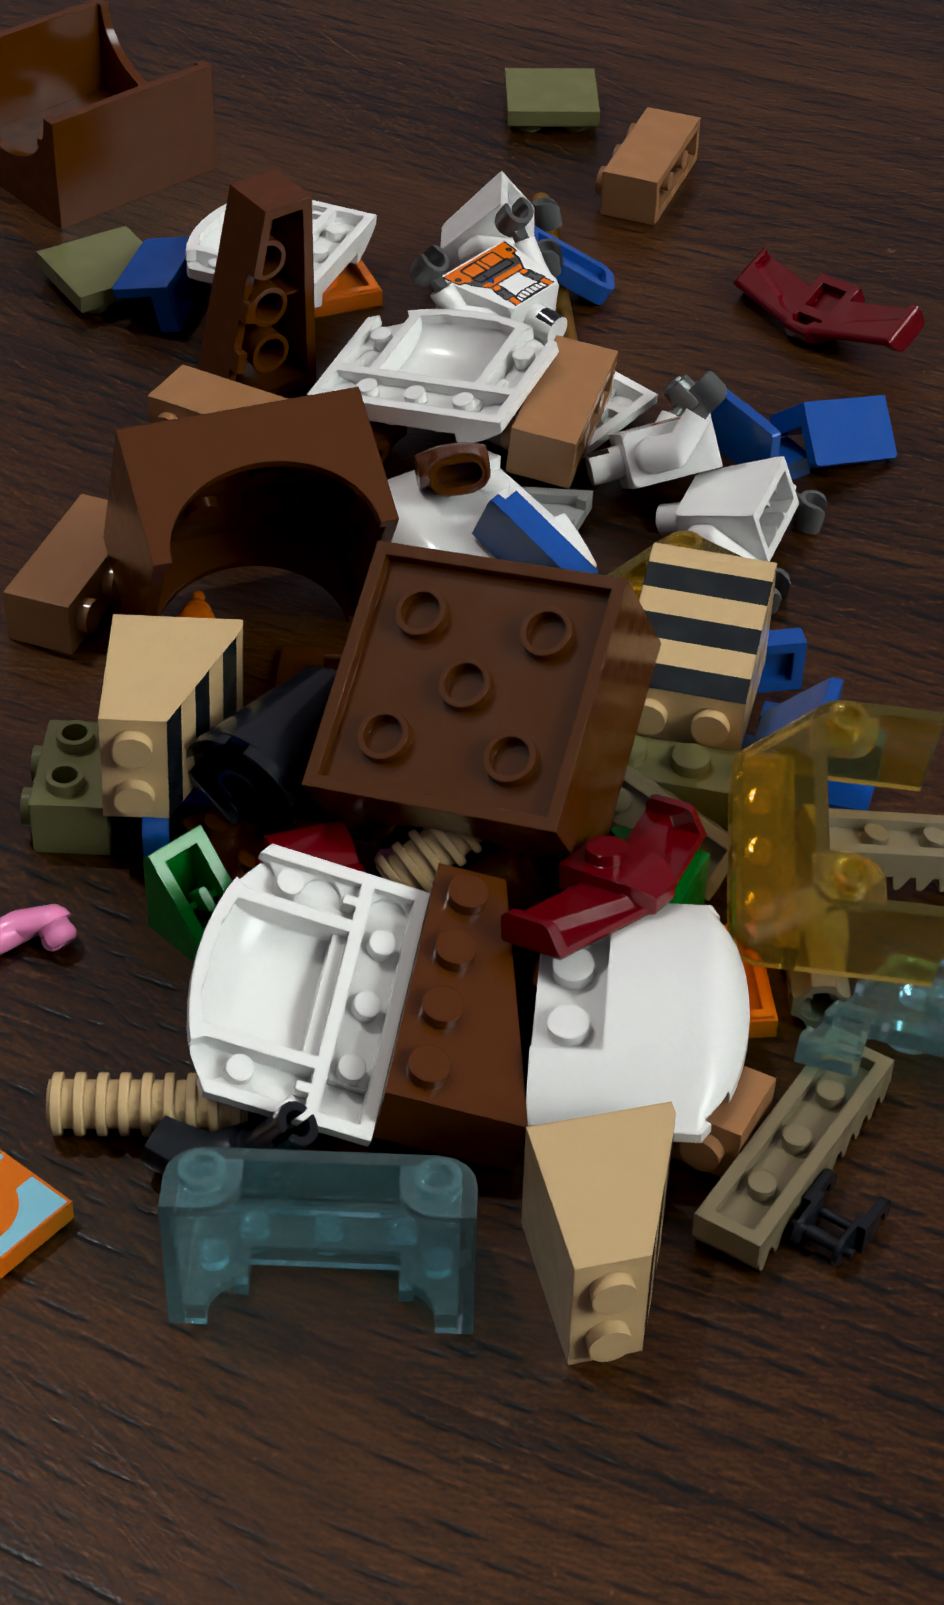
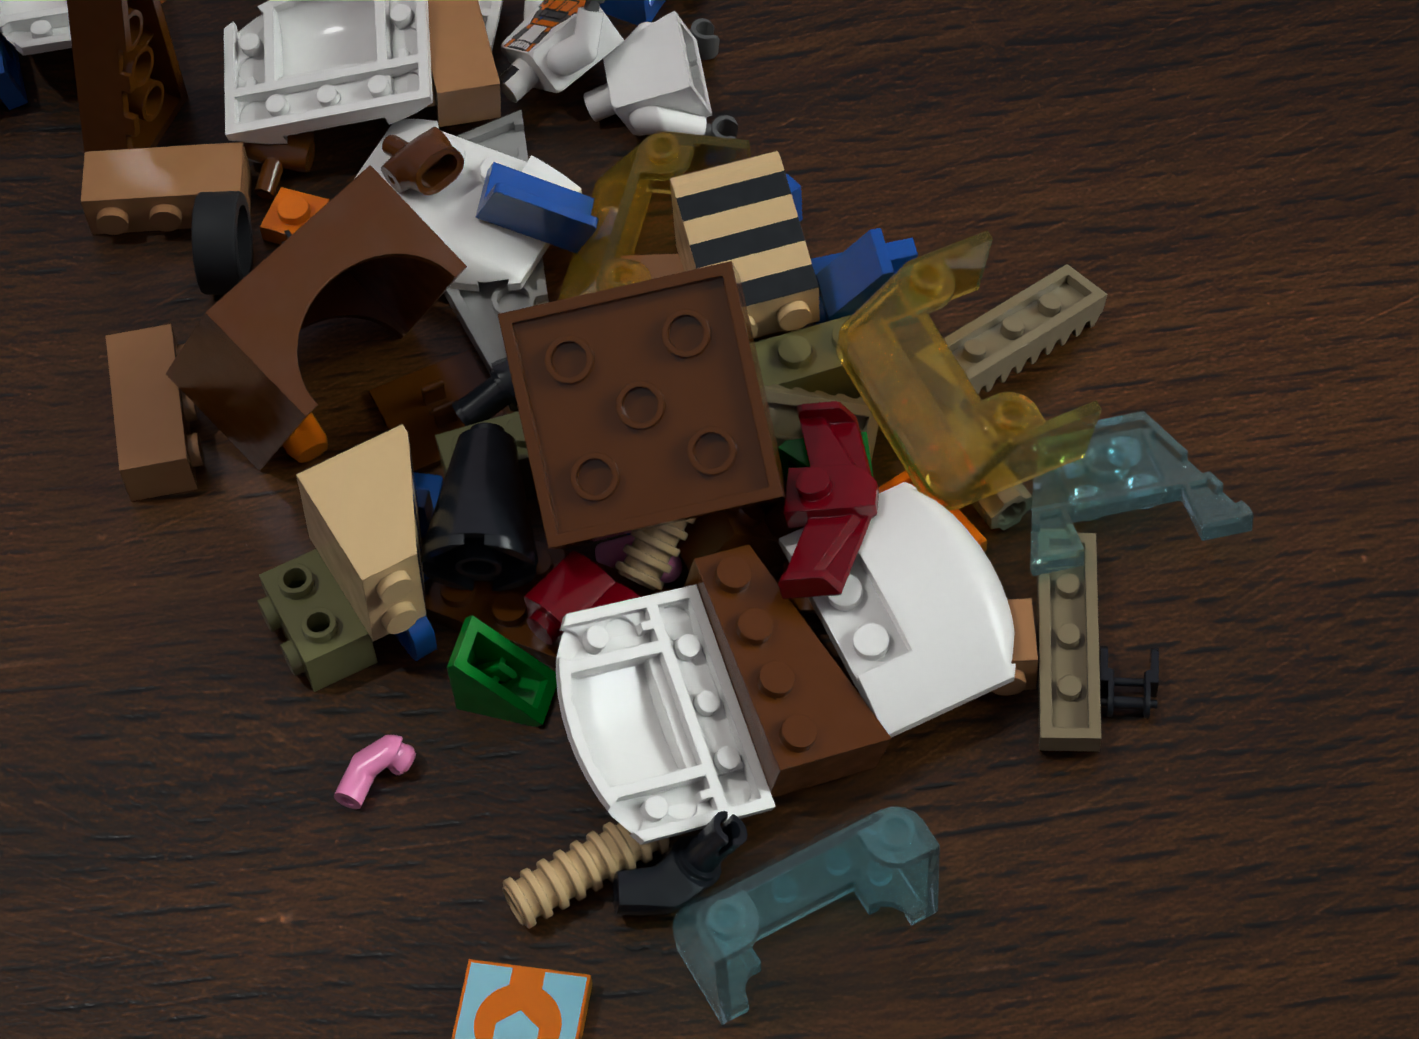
camera: 25 degrees left, 15 degrees up
(598, 1223) = (991, 788): tan slope -> none

